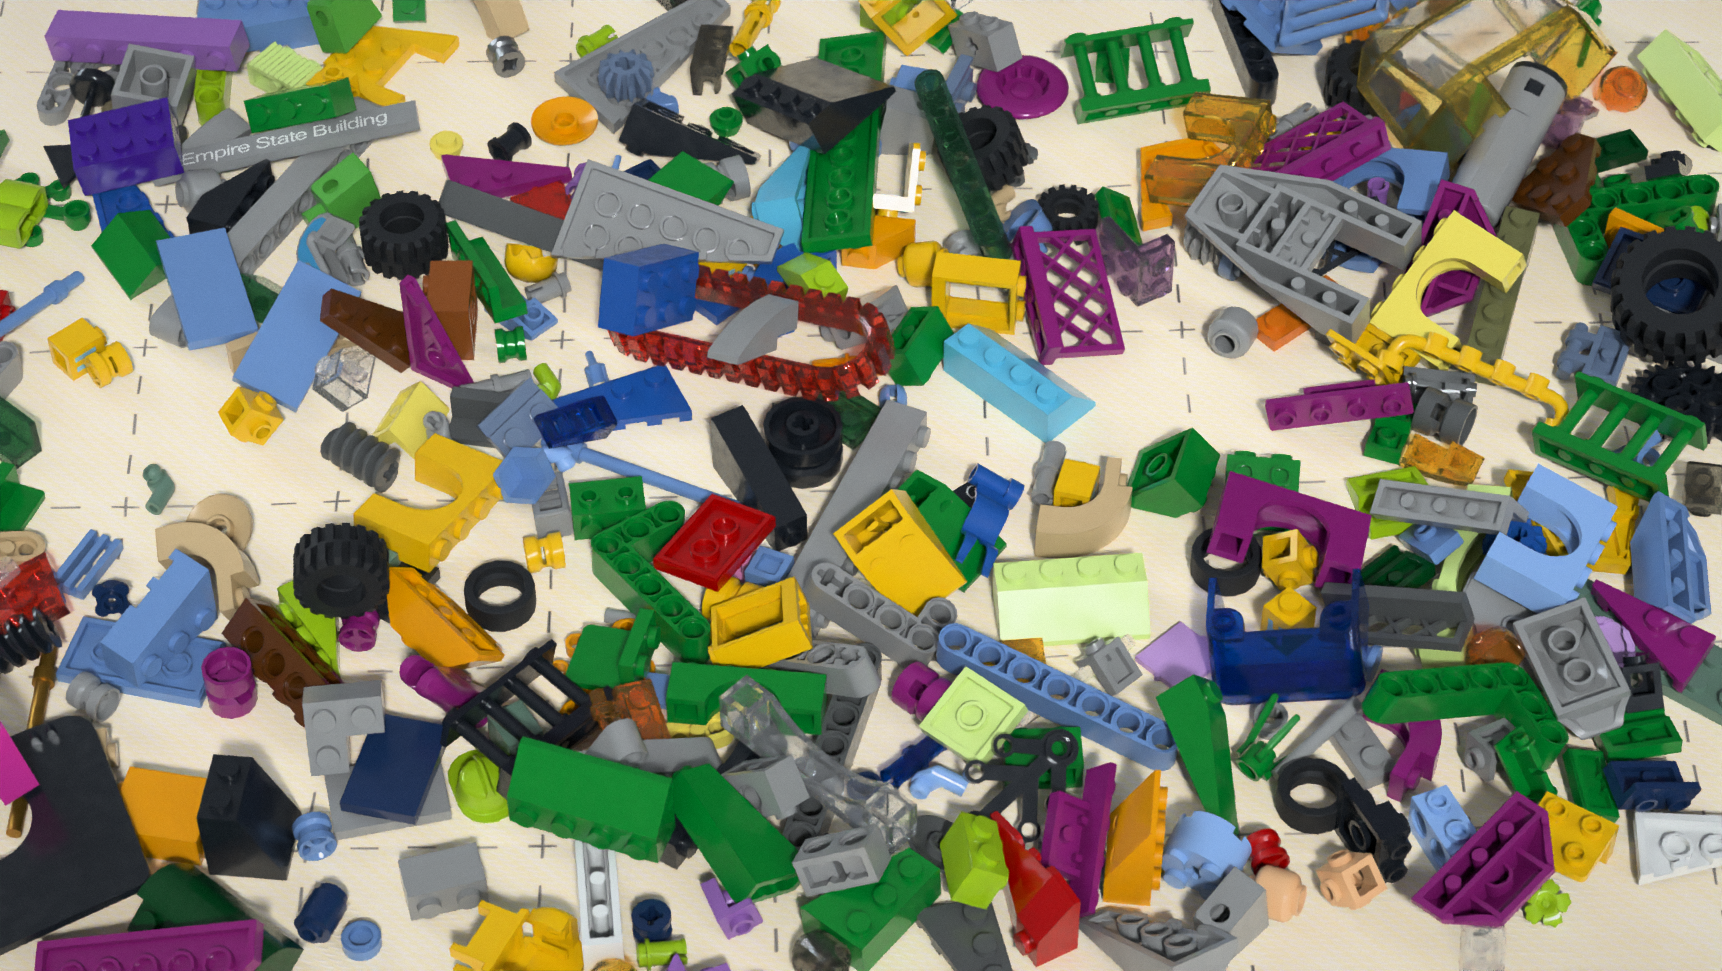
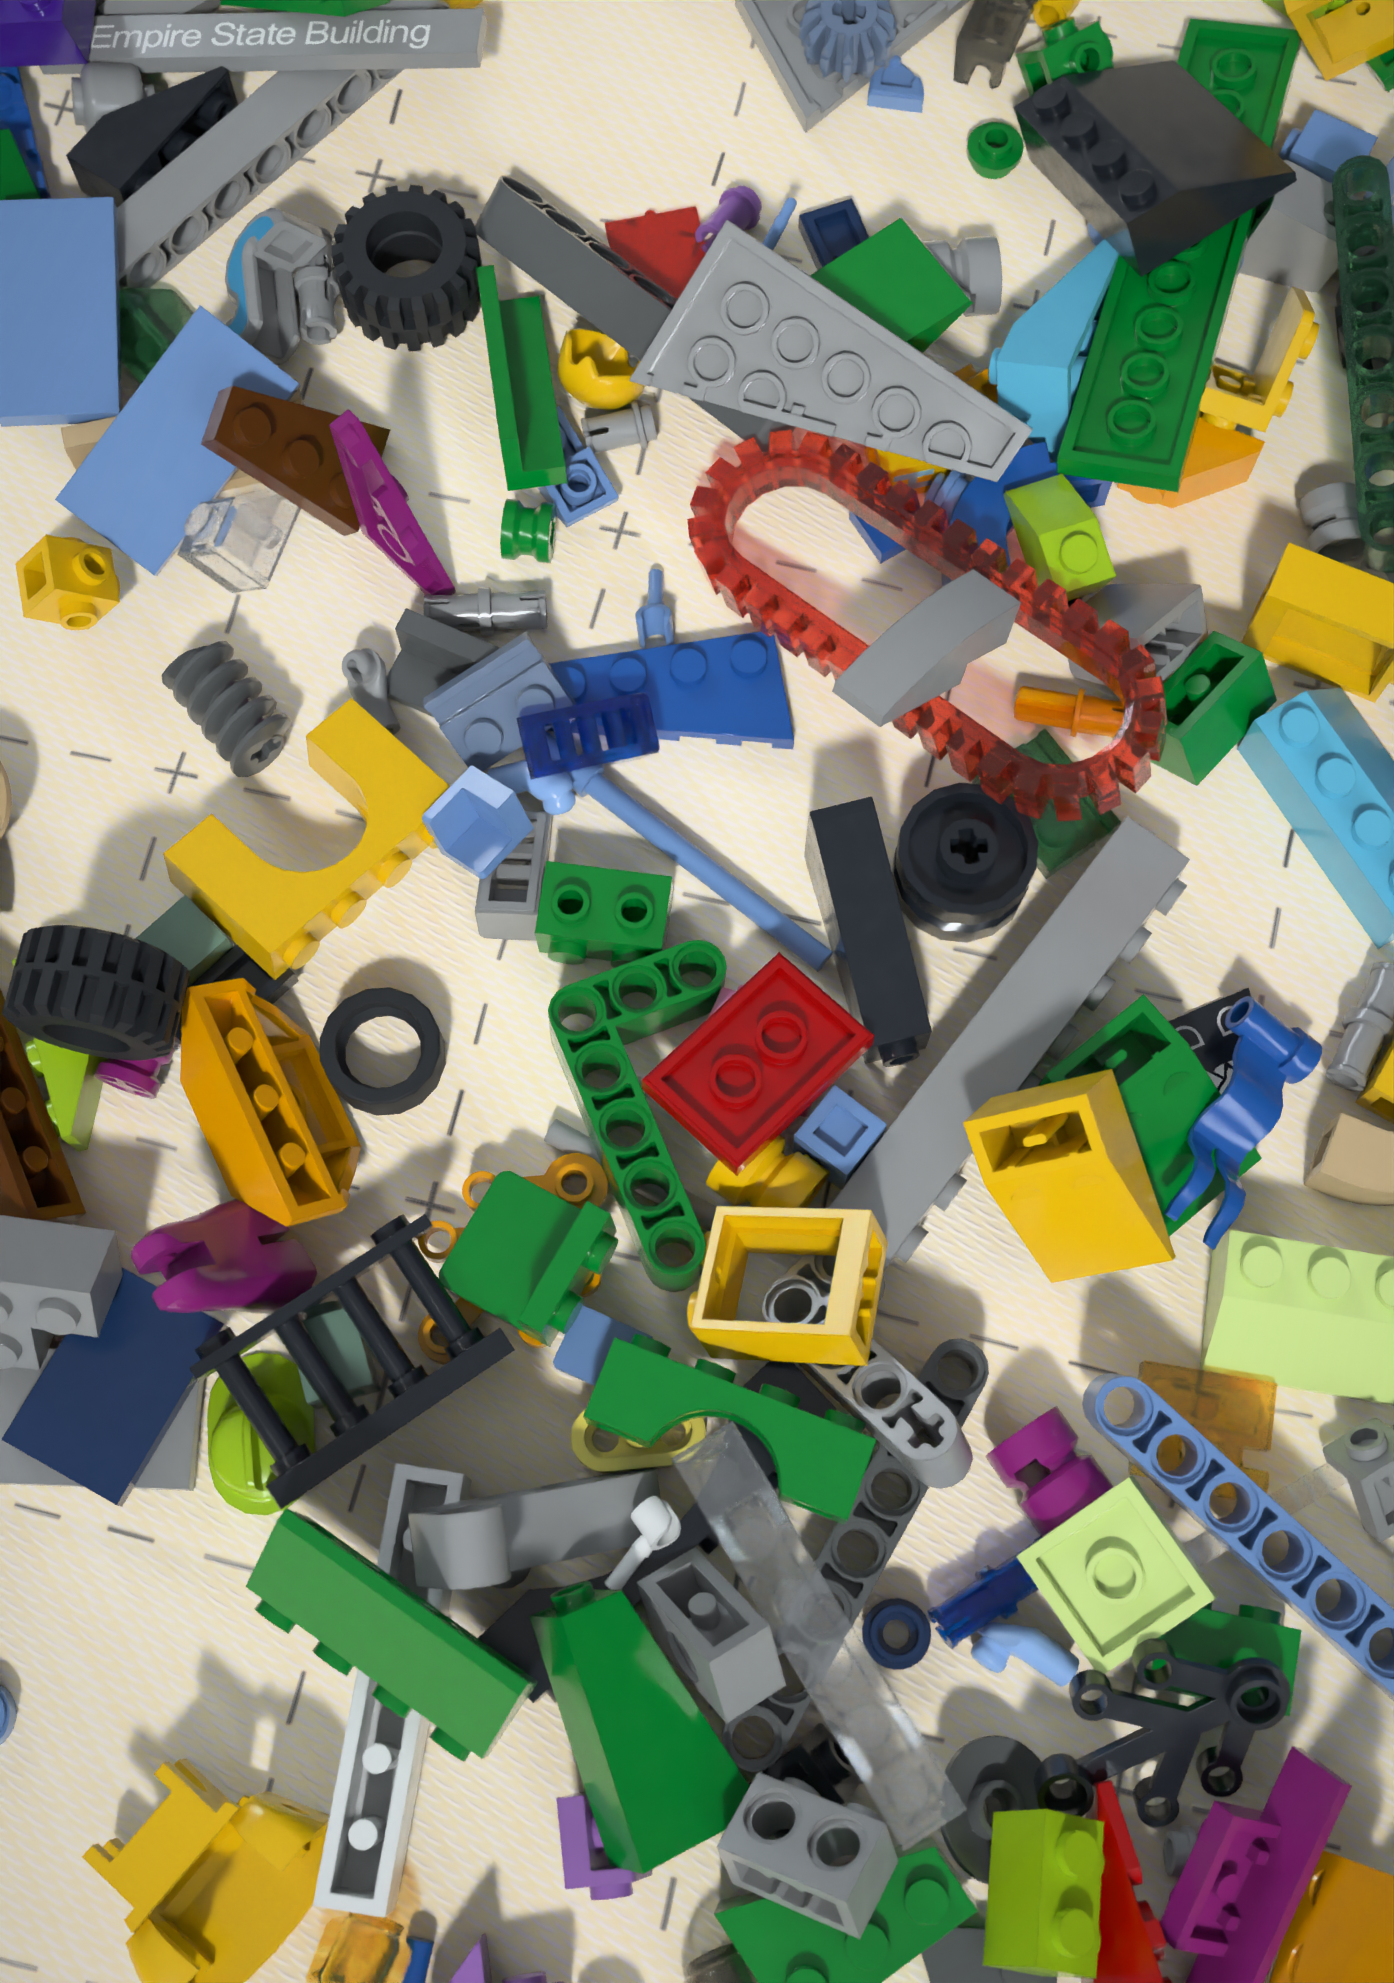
camera: 15 degrees right, 25 degrees up
(343, 191) = (326, 168): bright green torso -> none
(405, 418) = (314, 645): light yellow panel -> none
(443, 881) = (134, 1645): light grey brick -> none
(446, 143) = (528, 95): light yellow plate -> none
(453, 298) = (443, 443): dark orange brick -> none
(501, 176) = (596, 180): magenta wing -> none
(509, 143) = (629, 117): black bush -> none
(547, 380) = (574, 629): lime arm -> none
(552, 549) = (476, 981): yellow wheel -> none
(564, 120) = (728, 75): light orange dish -> none
(631, 701) = (541, 1415): clear orange plate -> none
(648, 289) = (768, 506): blue brick -> none
(660, 921) = (477, 1824): dark blue wheel -> none
(660, 952) = (462, 1898): lime pin -> none
(661, 132) = (880, 155): black wedge -> none
(717, 750) = (658, 1529): none -> white hand
(834, 592) = (998, 1278): light grey beam -> none
(892, 390) = (1153, 800): medium blue hinge -> none
(919, 262) = (1256, 527): yellow head -> none

